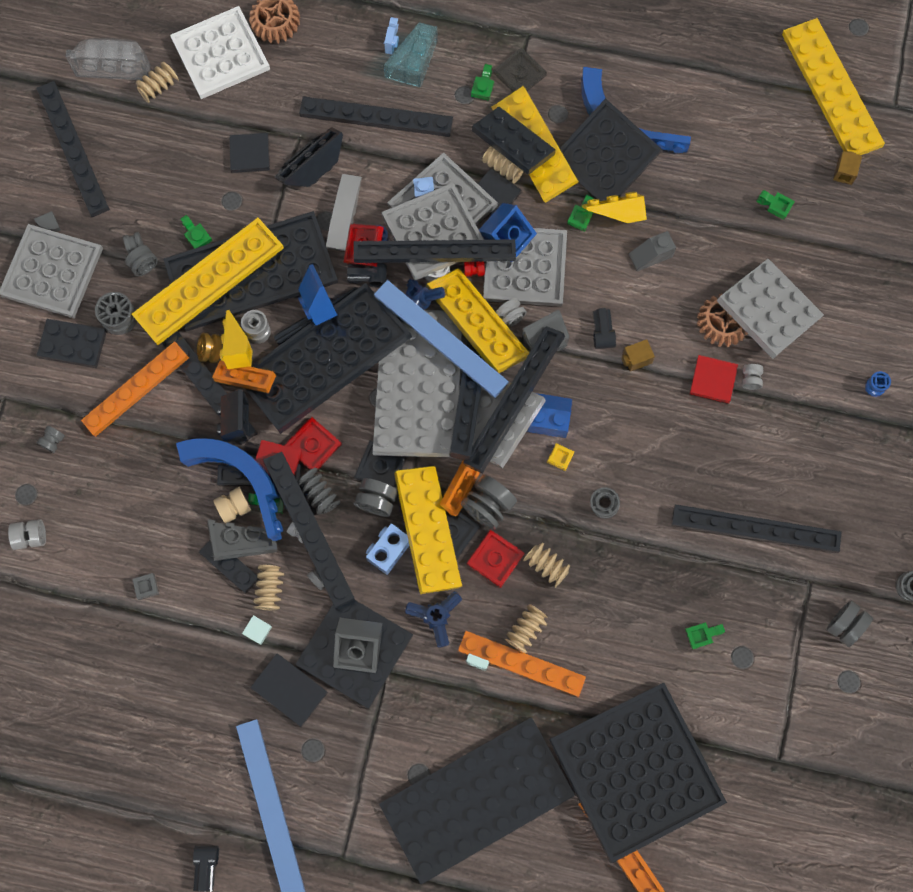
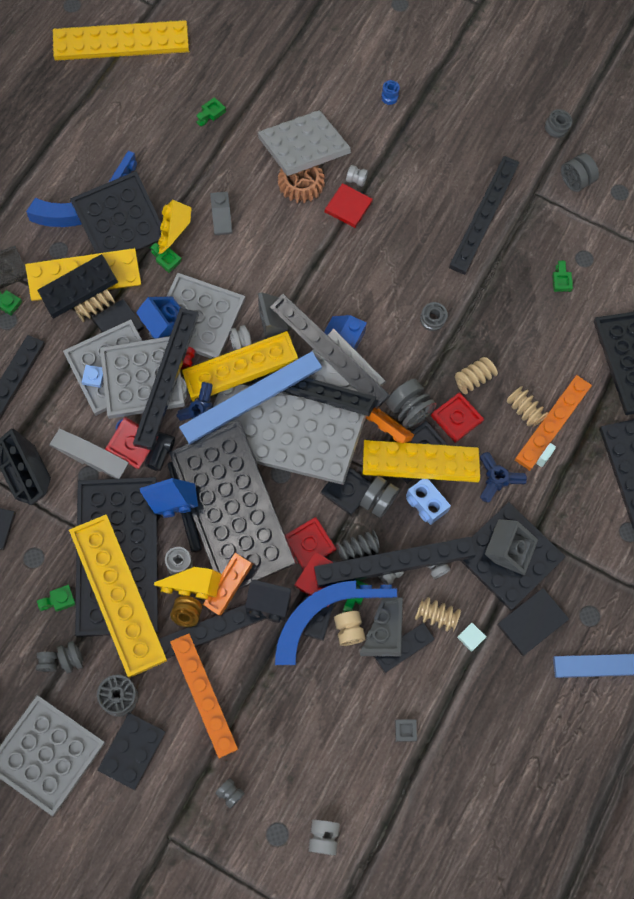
camera: 80 degrees left, 5 degrees down
(560, 457) = (381, 340): yellow tile -> none
(603, 335) = (283, 273): black piece -> none
(638, 355) = (311, 252): pearl gold brick -> none
(847, 167) = (198, 51): pearl gold brick -> none

